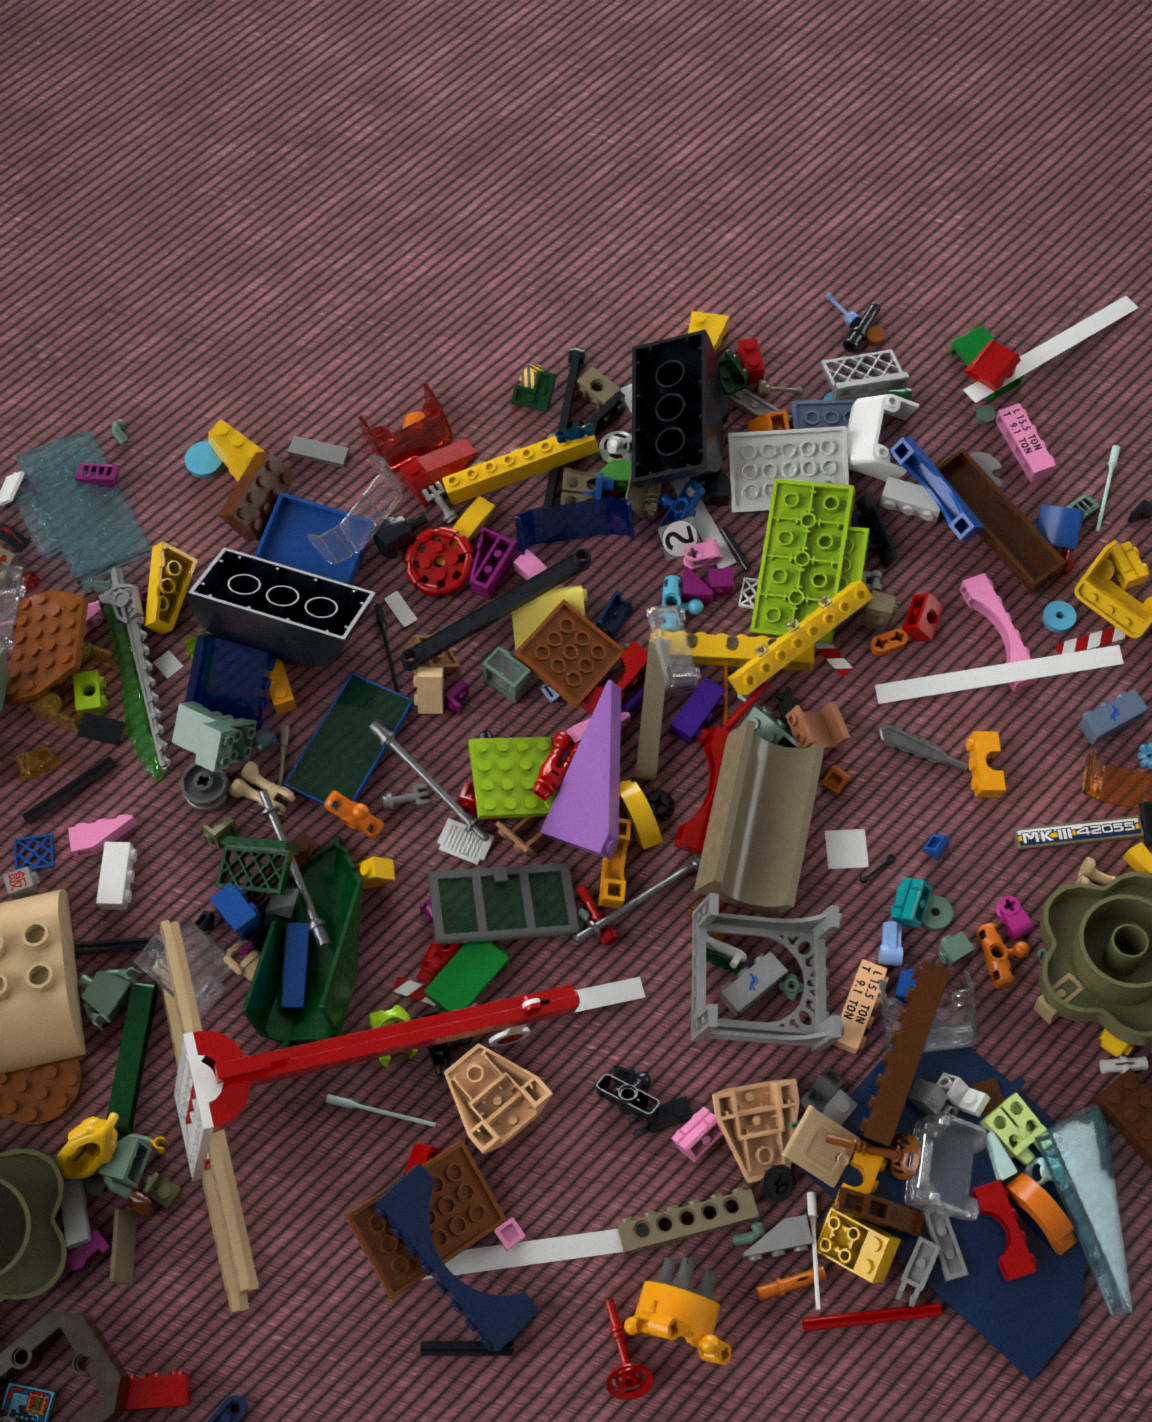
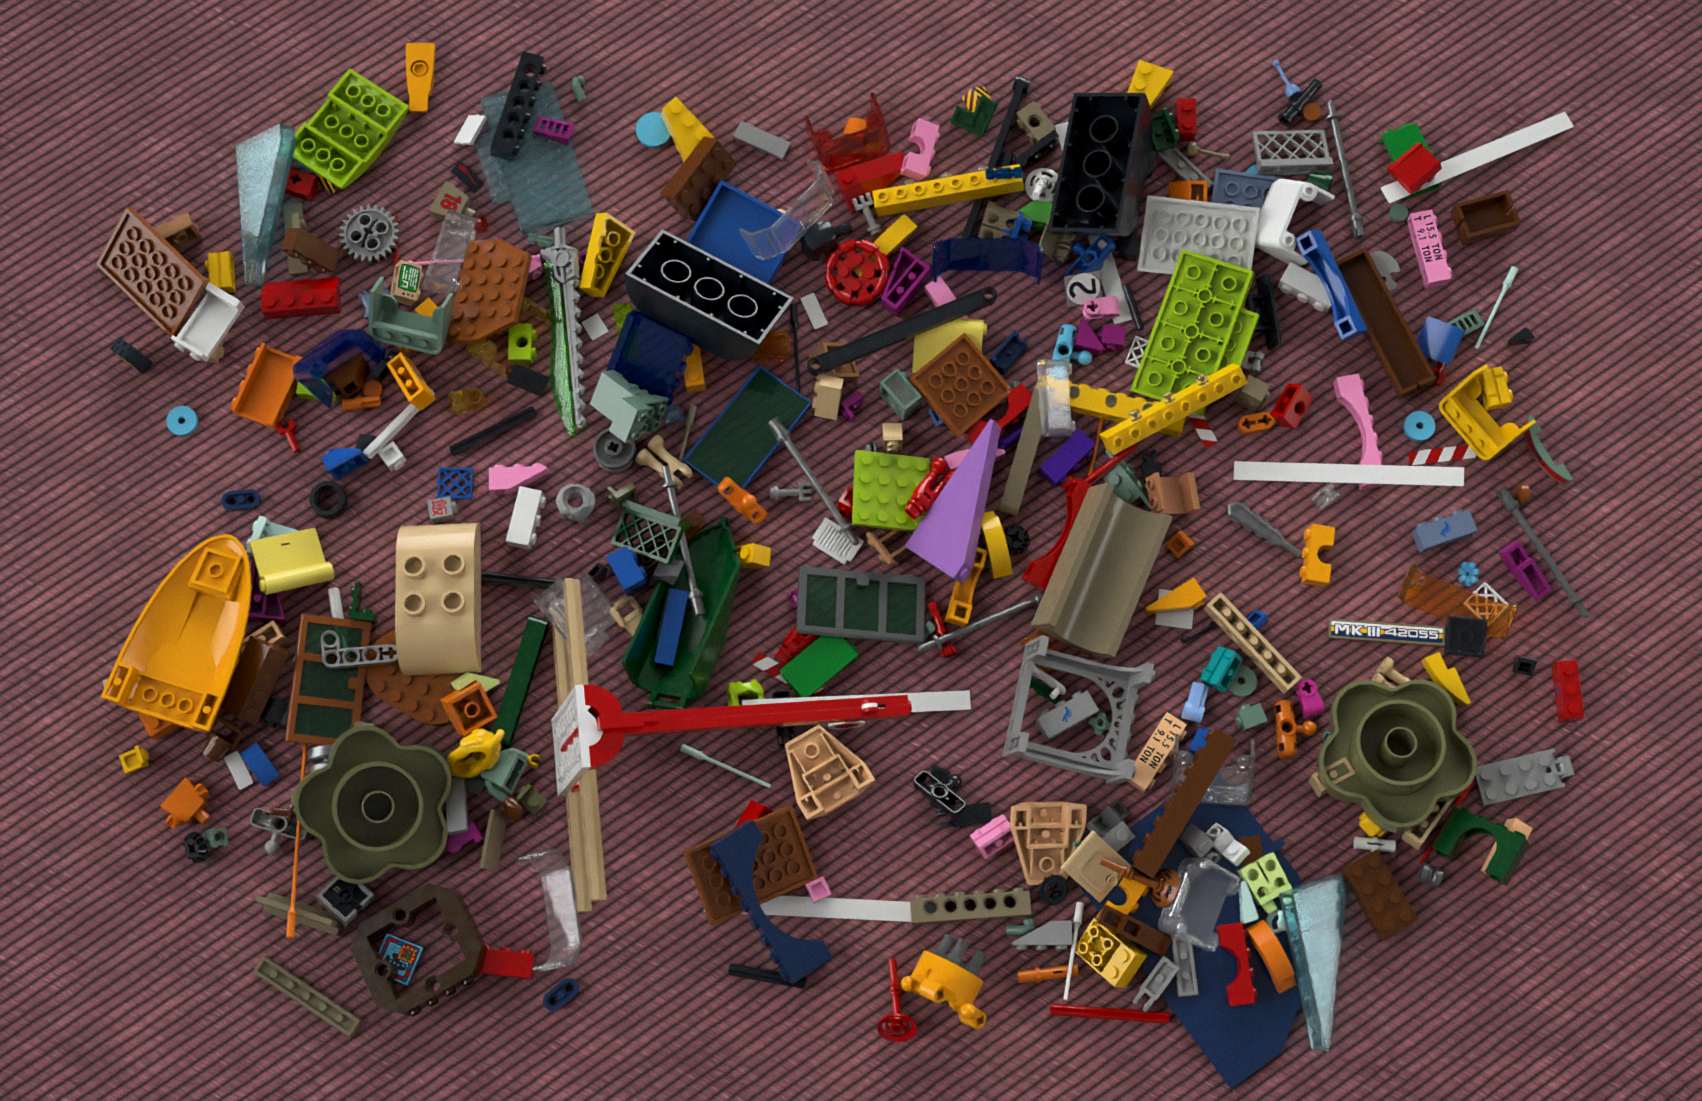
camera: 10 degrees right, 10 degrees up
(41, 497) = (528, 64): none -> black brick
(75, 1096) = (468, 708): none -> orange brick
(86, 1065) = (467, 678): none -> yellowish green slope
(106, 994) = (504, 622): sand green torso -> none
(169, 860) = (576, 514): none -> light grey piece
(211, 1311) = (560, 908): none -> clear windscreen
(253, 943) = (638, 601): piece -> none
(361, 651) = (774, 346): none -> clear orange brick
(487, 418) = (925, 136): none -> bright pink arch
(506, 721) = (892, 437): none -> tan slope
(850, 836) = (1180, 599): none -> light orange slope
(938, 868) = (1252, 643): none -> tan brick
(943, 427) = (1355, 218): none -> flat silver bar
(980, 702) = (1325, 500): none -> clear wheel
(1074, 402) = (1485, 217): none -> reddish brown piece

